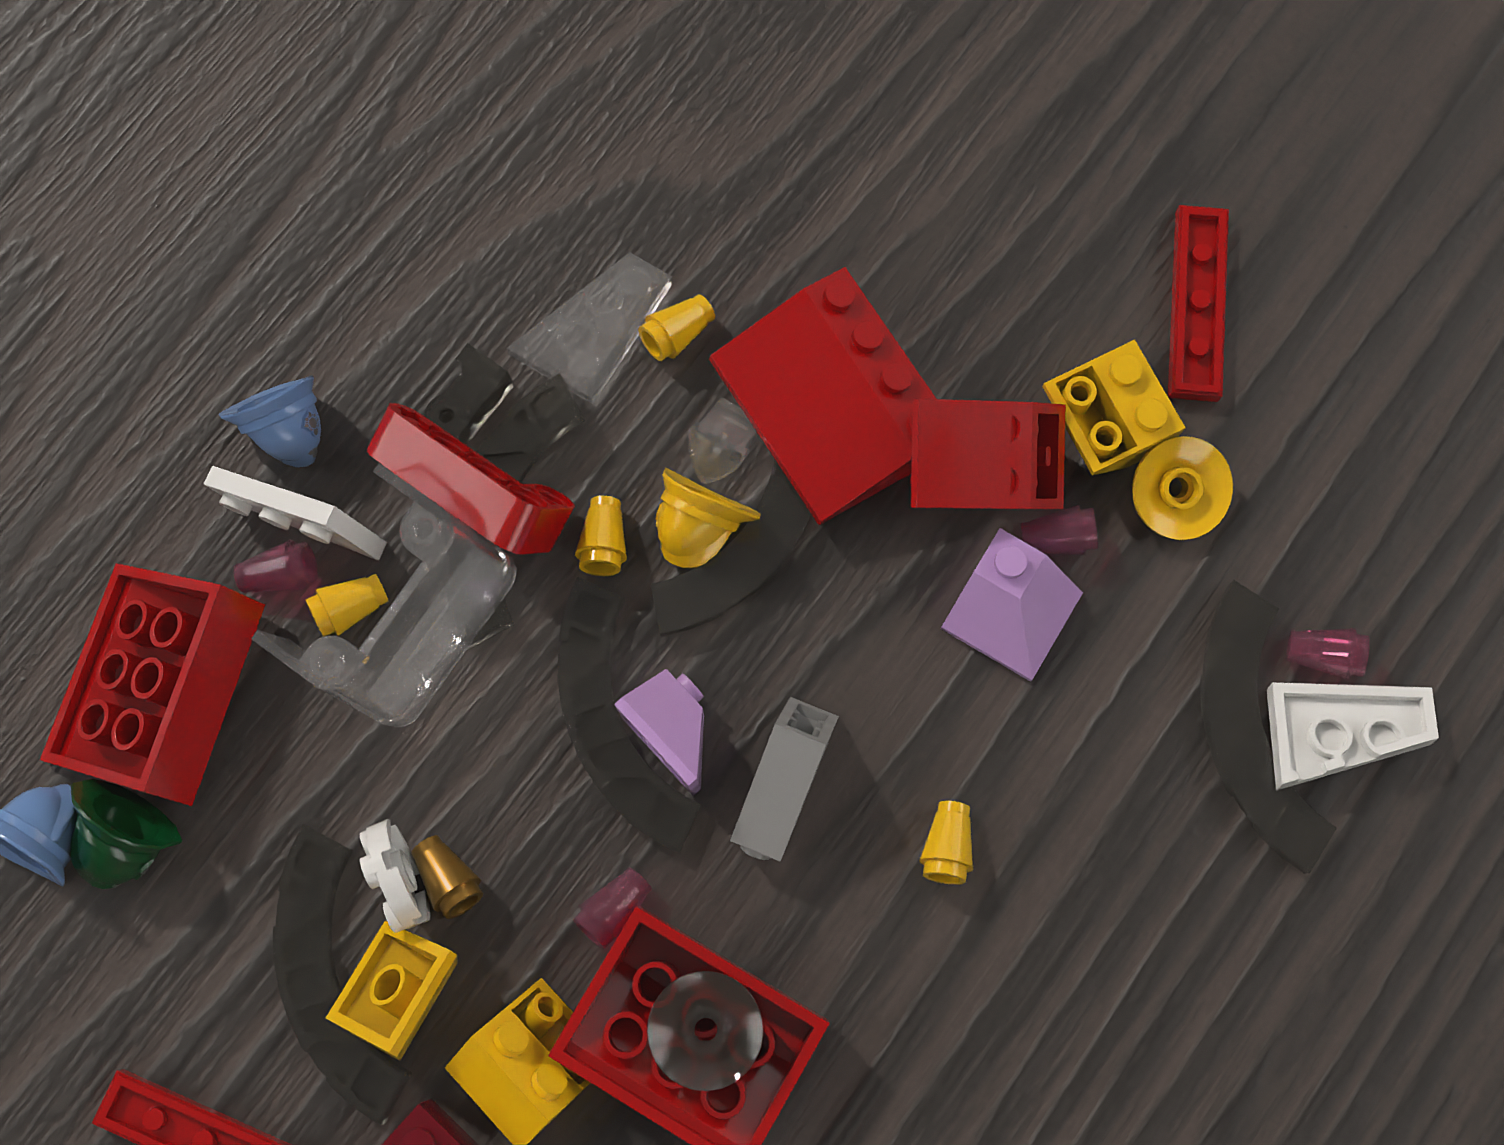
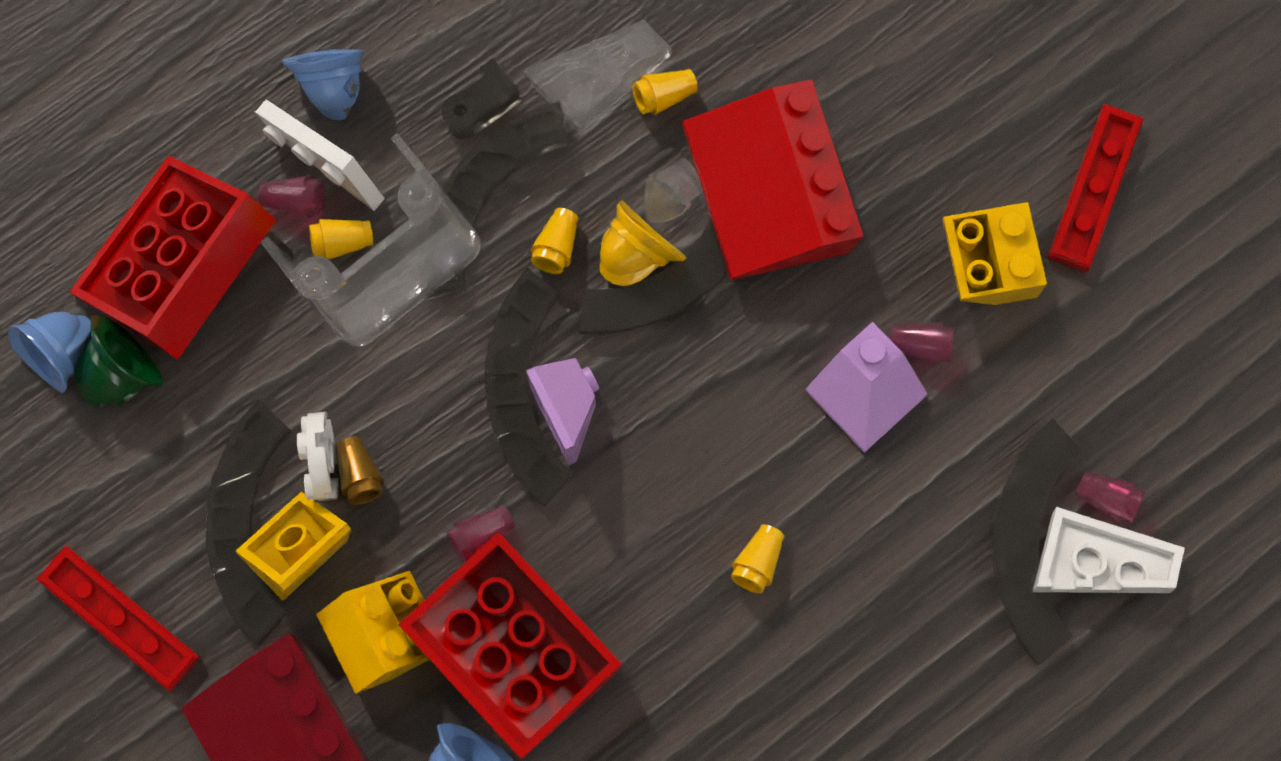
camera: 15 degrees right, 0 degrees up
(468, 485) = (461, 169): red beam -> none
(701, 1062) = (523, 613): clear smoke dish -> none
(783, 779) = (643, 470): light grey slope -> none
(987, 454) = (879, 260): red slope -> none
(1204, 490) = (1052, 338): yellow dish -> none

